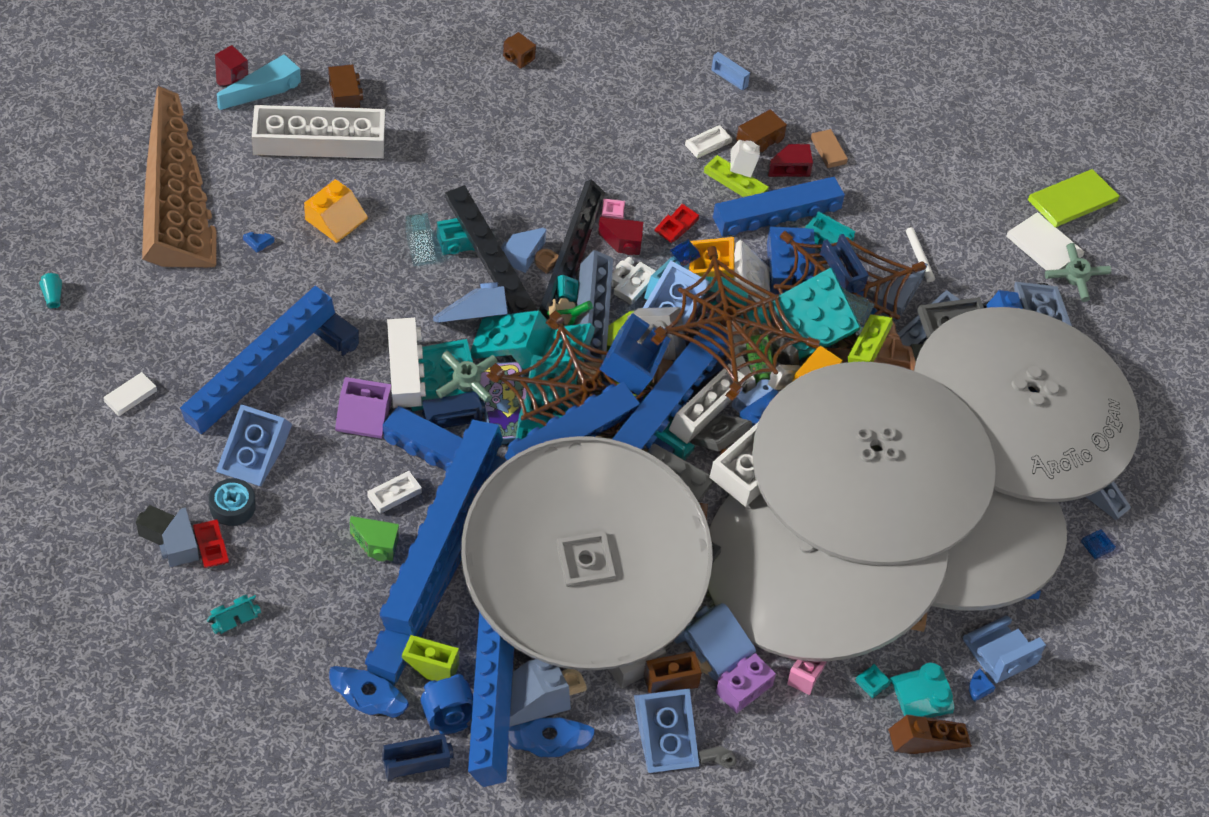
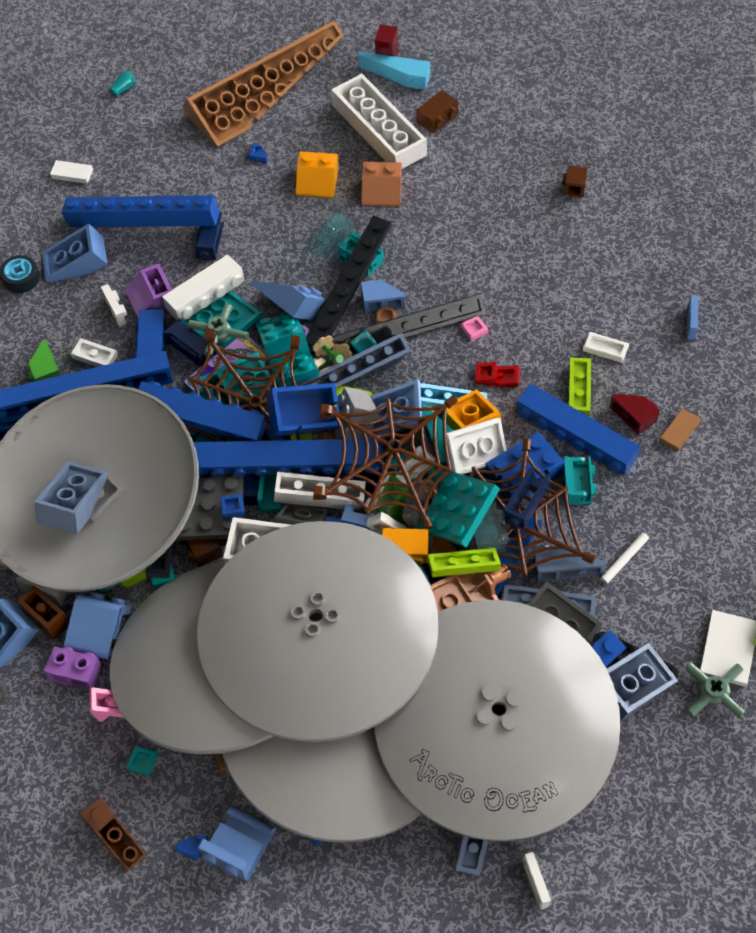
camera: 65 degrees right, 5 degrees up
(348, 445) = (112, 299): none -> white plate
(393, 174) = (381, 184): none -> nougat slope
(589, 571) = (70, 497): none -> sand blue slope
(622, 234) = (450, 348): dark red slope -> none
(634, 283) = (405, 372): white plate -> none
(685, 253) = (459, 390): clear blue tile -> none
(687, 464) = (232, 506): none -> blue tile
(744, 157) = (599, 375): white slope -> none
(763, 130) = (646, 374): reddish brown brick -> none
(924, 692) = (152, 804): teal slope -> none
(1098, 544) = (415, 867): clear blue tile -> none
(1161, 472) = (536, 881): none -> white tile

